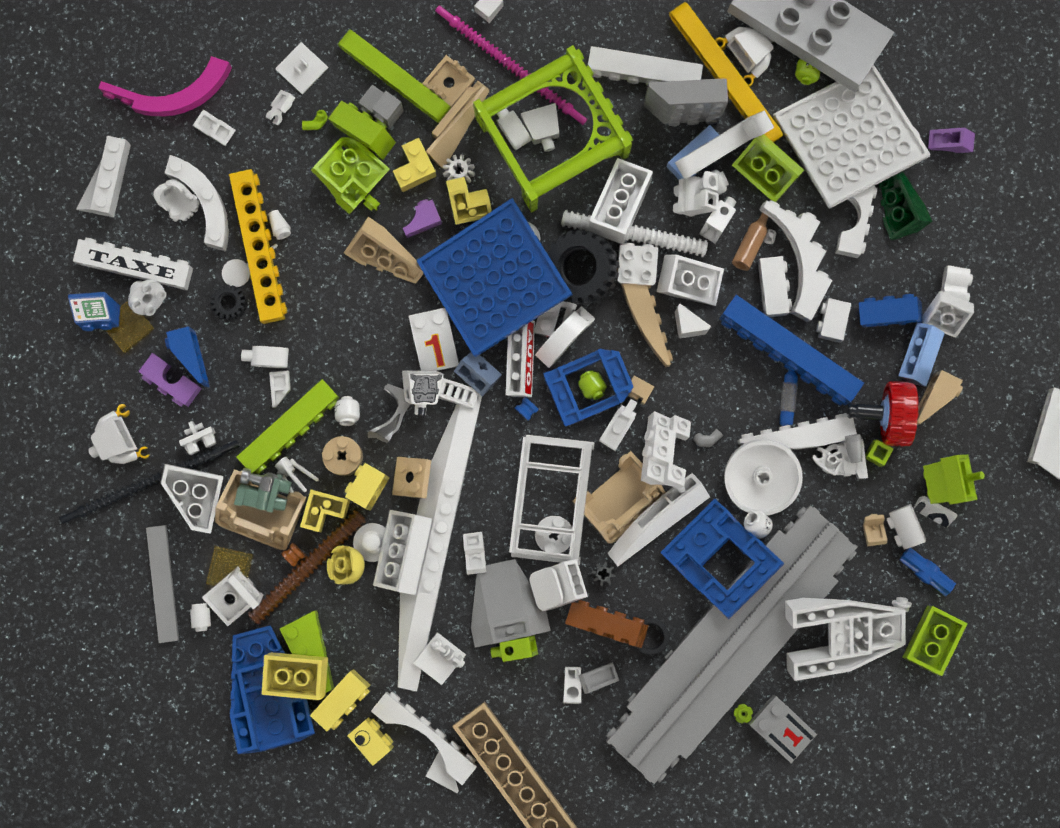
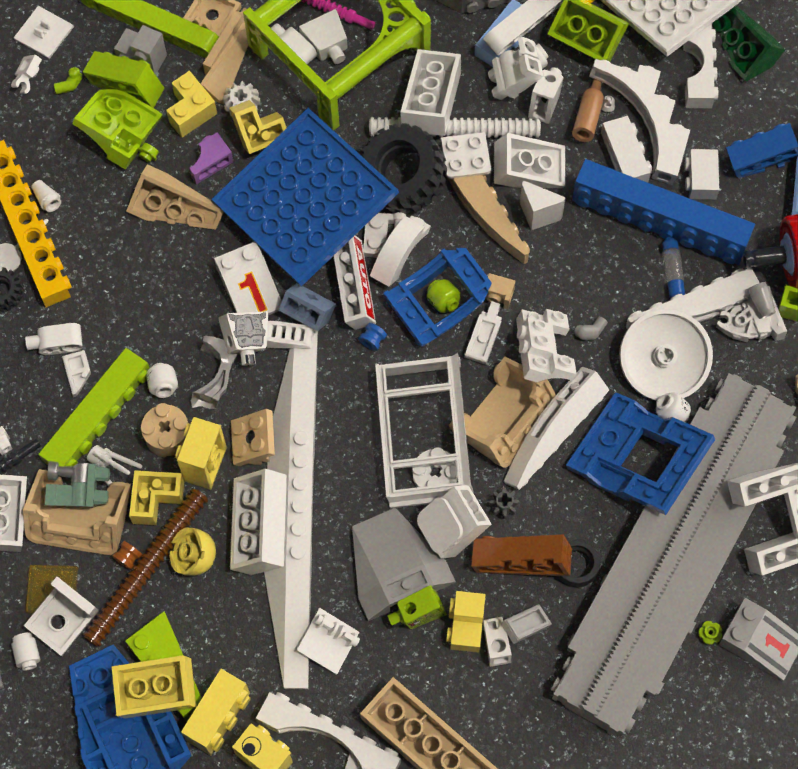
camera: 10 degrees left, 15 degrees down
(369, 541) = (217, 521): white plate -> none
(474, 553) = (345, 510): white slope -> none
(552, 667) = (467, 618): none -> light yellow brick

